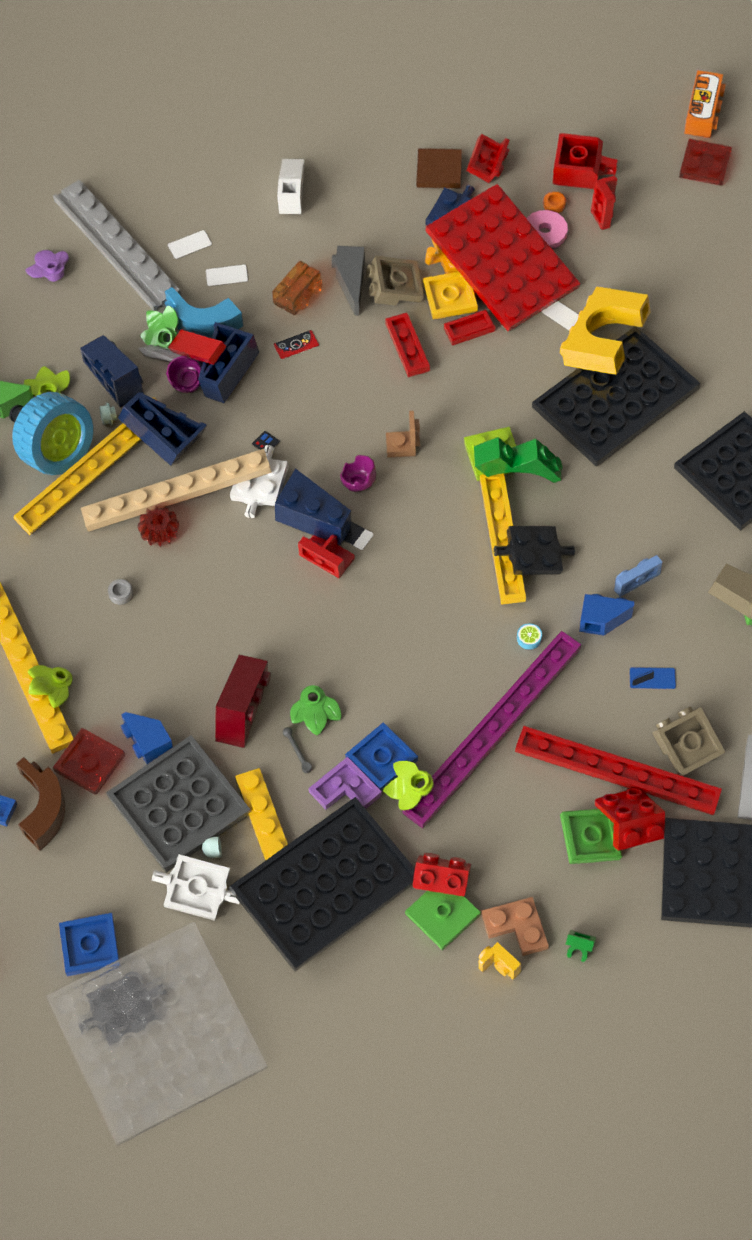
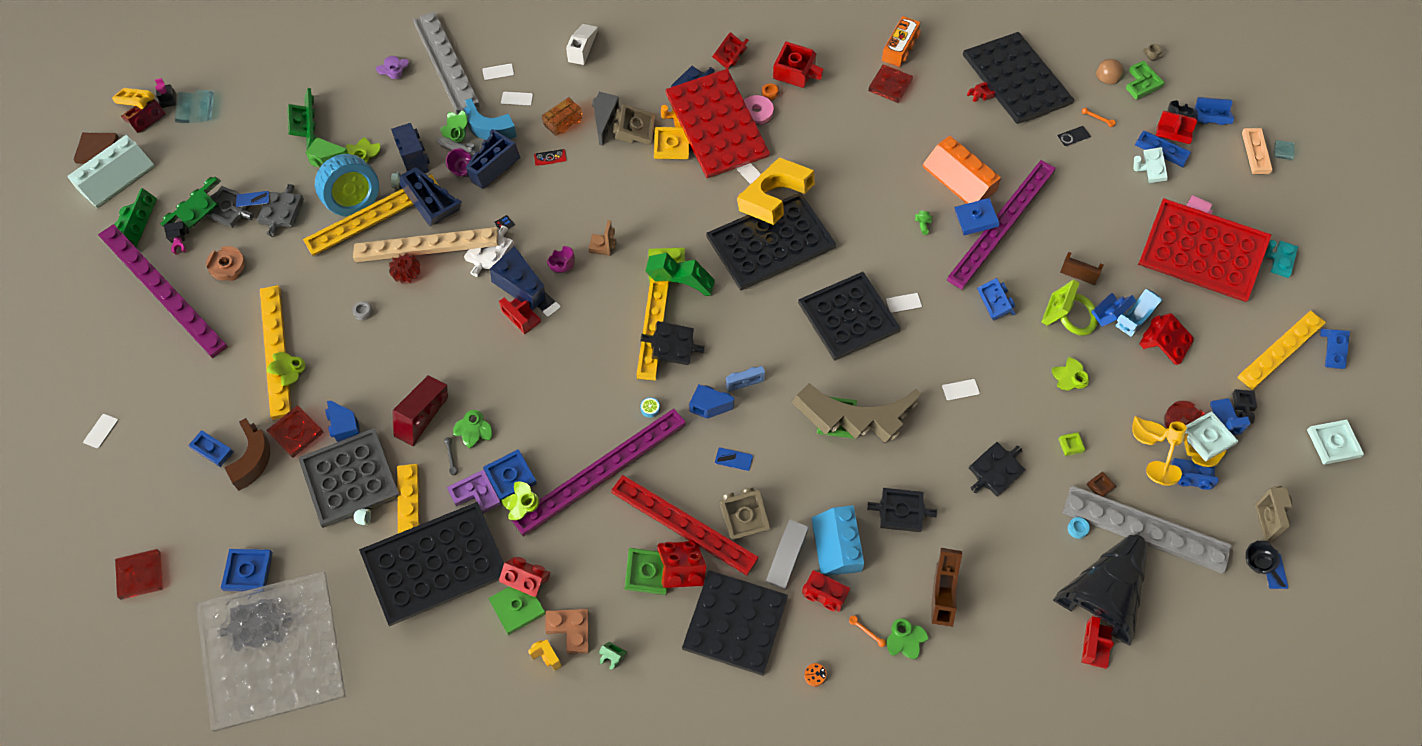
camera: 10 degrees right, 0 degrees up
(196, 887) = (337, 544): white plate -> none
(197, 347) = (473, 144): red tile -> none
(407, 344) = (629, 173): red plate -> none
(439, 168) = (693, 51): reddish brown tile -> none
(469, 327) = (678, 169): red tile -> none
(604, 200) = (804, 96): red bracket -> none

